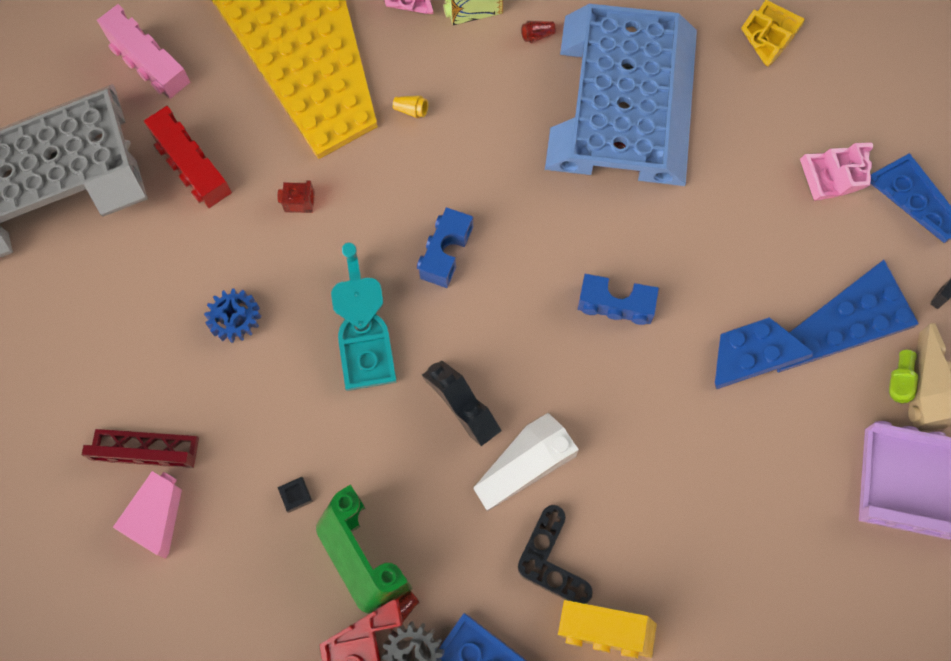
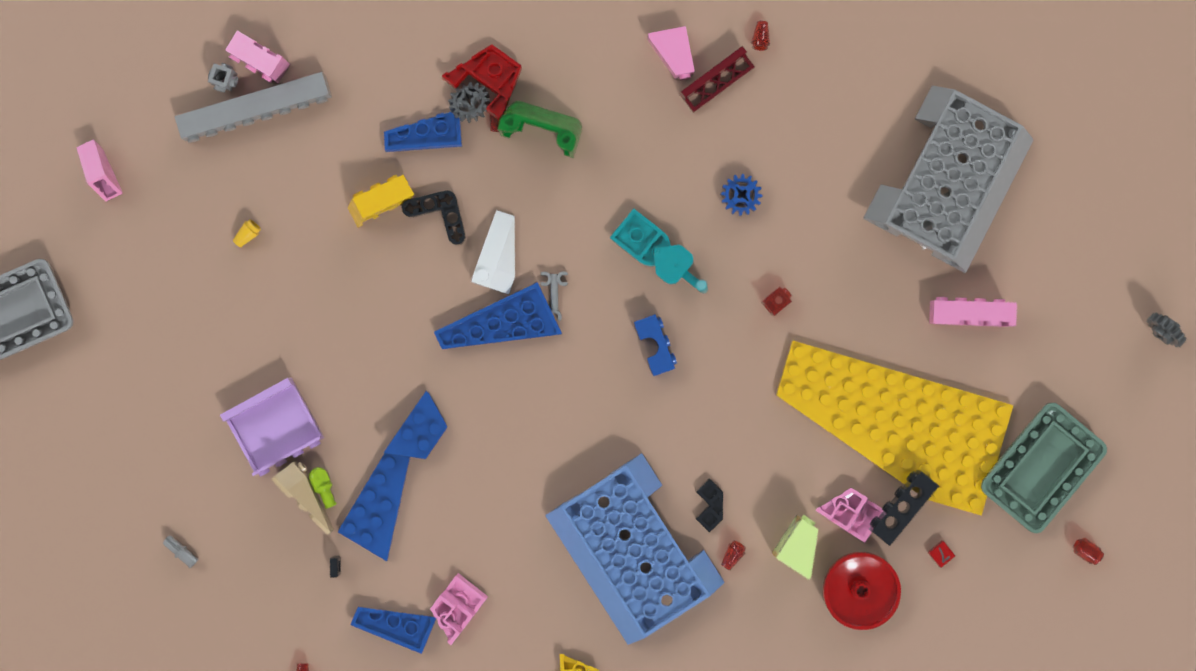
camera: 140 degrees right, 20 degrees up
(58, 451) = (761, 36): none -> clear red cone
(186, 158) = (867, 266): red wedge -> none
(295, 494) = (608, 128): black tile -> none
(411, 105) = (764, 426): yellow cone -> none
(460, 399) = (561, 256): black arch -> none
(490, 389) = (554, 279): none -> light grey bar
(524, 75) = (714, 512): none -> black tile
(571, 387) = (509, 319): none -> blue wing
(597, 300) = (508, 403): blue arch -> none

